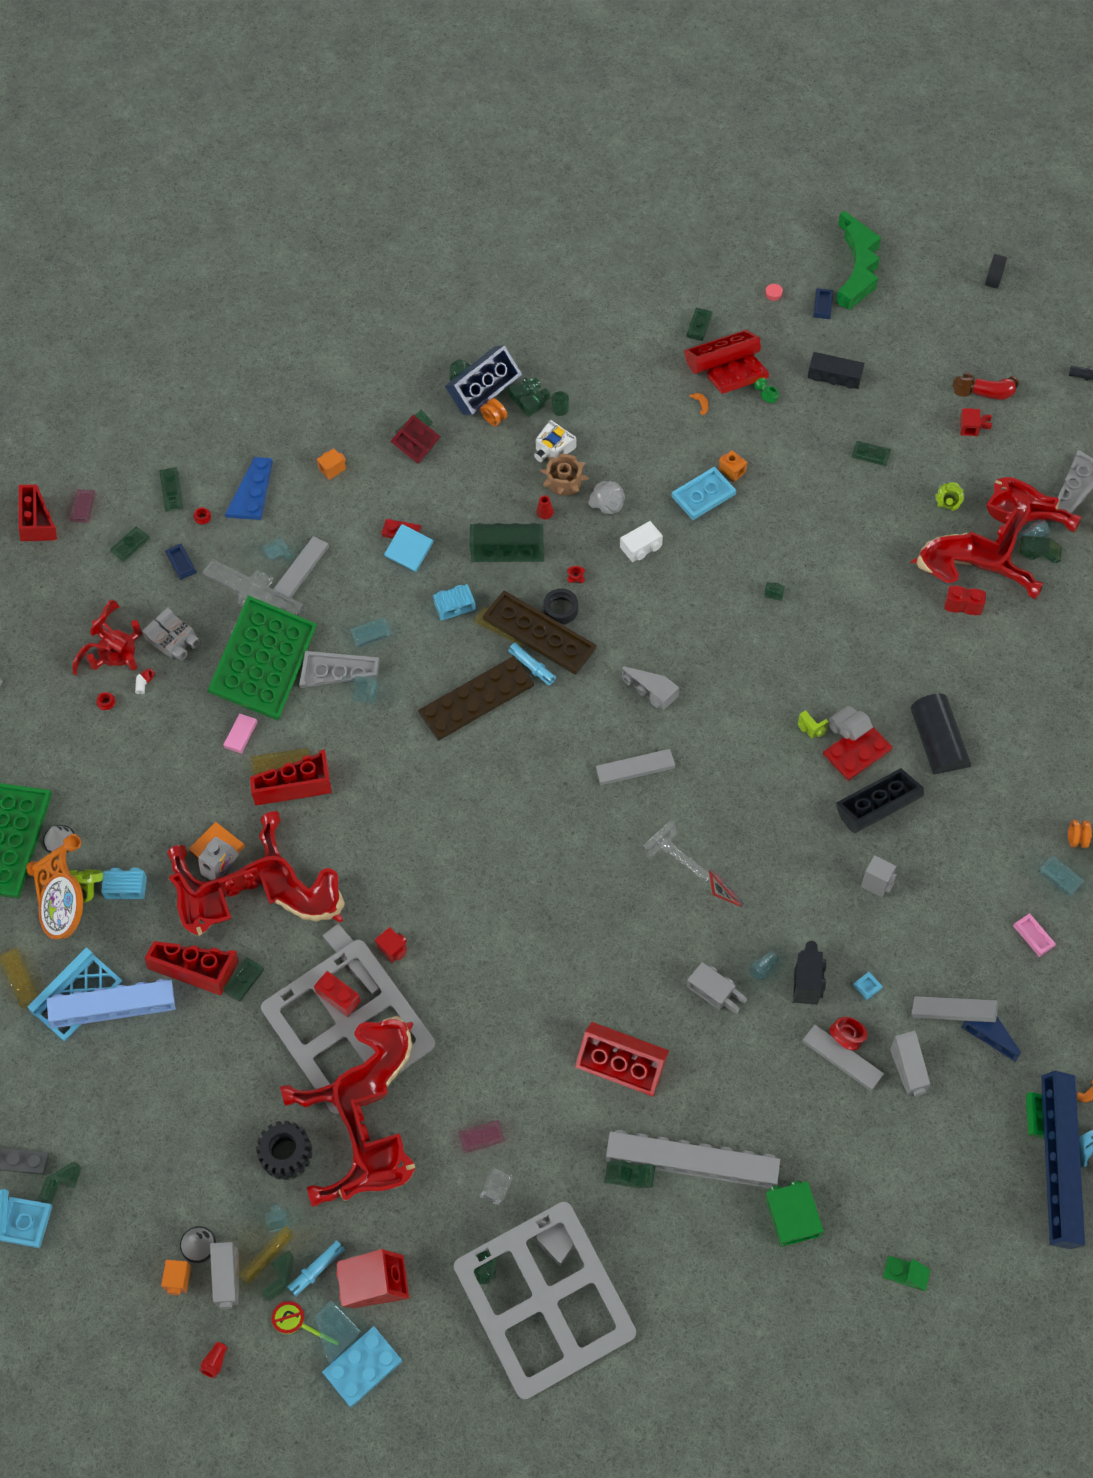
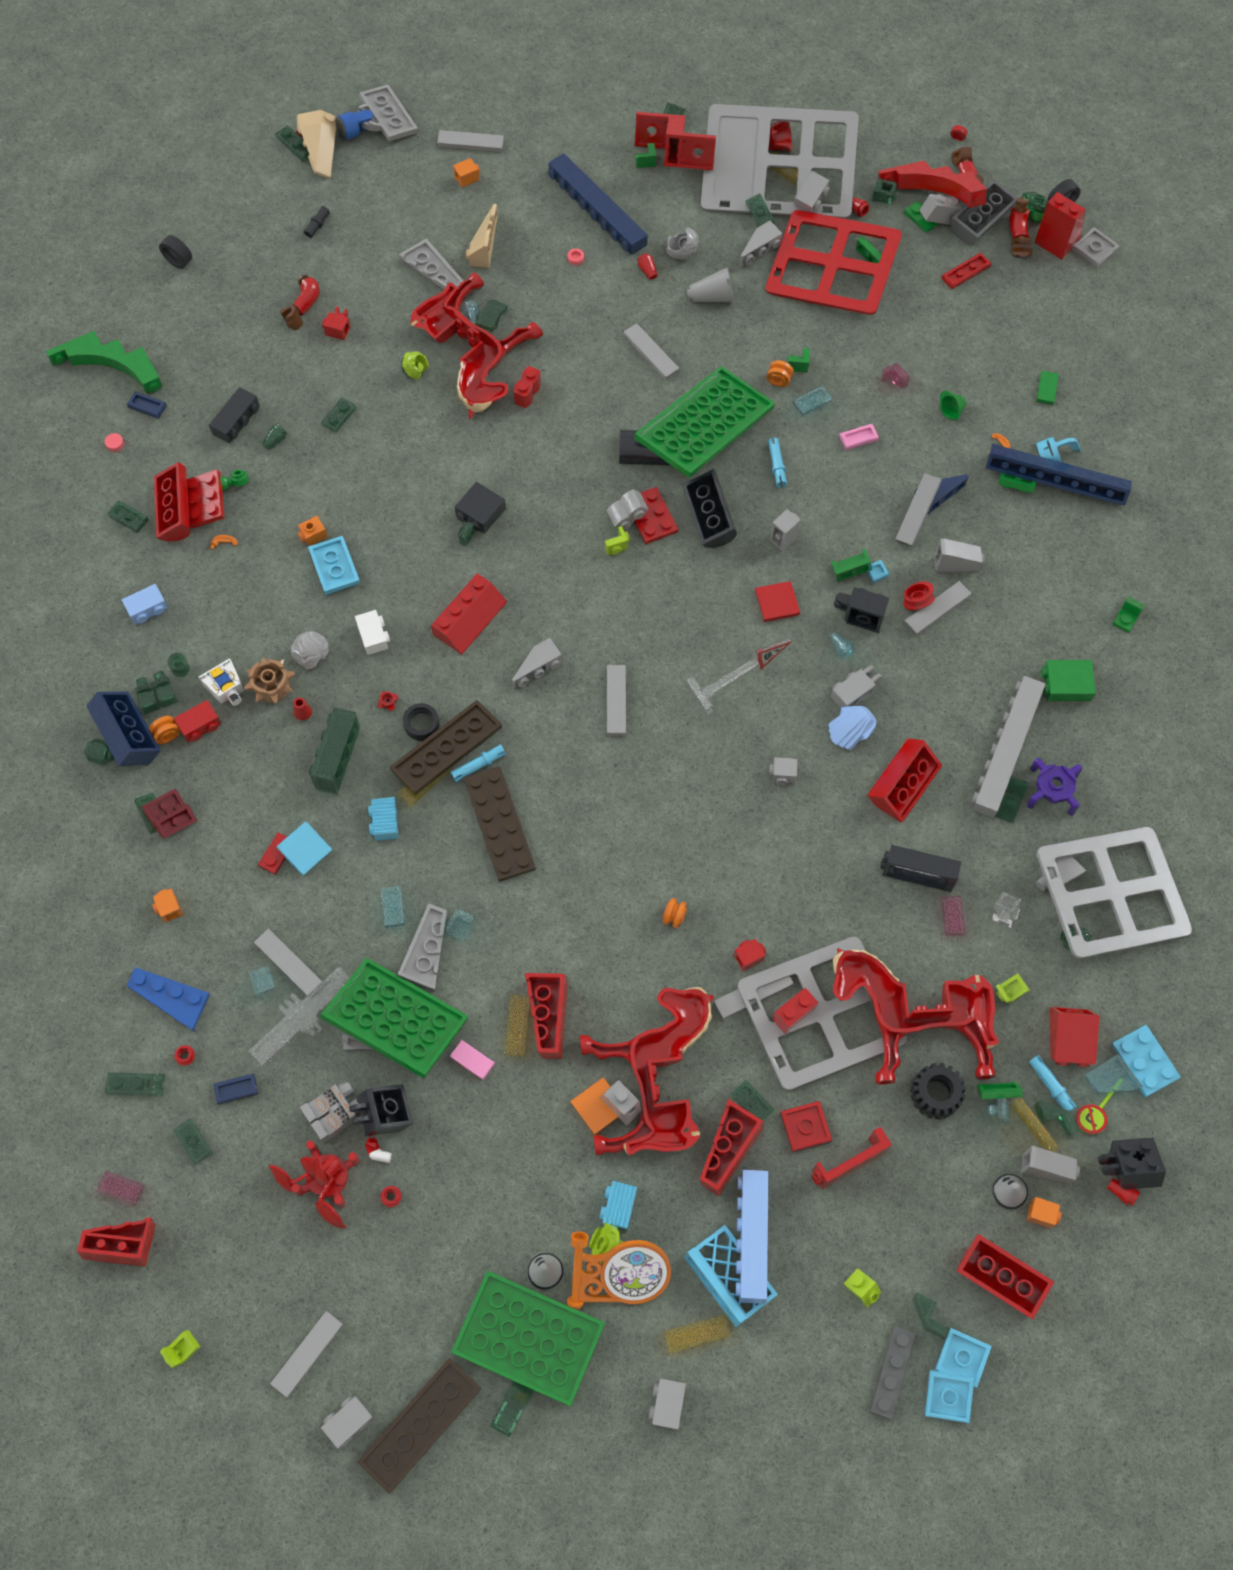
camera: 80 degrees left, 5 degrees up
(79, 1115) = (863, 1287): none -> lime bracket
(104, 1246) = (1004, 1276): none -> red brick
(176, 658) = (382, 1110): none -> black hinge
(216, 1100) = (880, 1145): none -> red panel
(229, 1034) = (806, 1126): none -> red tile
(248, 1351) = (1134, 1163): none -> black hinge
(297, 1213) = (999, 1090): none -> green tile
(409, 1207) = (1012, 989): none -> lime bracket
(417, 866) = (674, 913): none -> orange wheel
(510, 434) = (197, 721): none -> red brick
(519, 1088) = (920, 868): none -> black piece
(598, 936) = (783, 770): none -> light grey brick
(613, 362) = (145, 604): none -> light blue brick
(657, 1228) = (1049, 791): none -> dark purple plate
(669, 994) = (852, 726): none -> light blue hair
(686, 615) = (468, 614): none -> red slope
(796, 892) = (777, 601): none -> red tile
(806, 594) = (480, 507): none -> black brick
(825, 408) = (274, 436): none -> clear green cone
(862, 955) = (852, 566): none -> green hinge
(971, 855) = (777, 462): none -> medium azure pin
(984, 769) = (704, 421): none -> green plate
(1060, 705) = (651, 351): none -> light grey tile

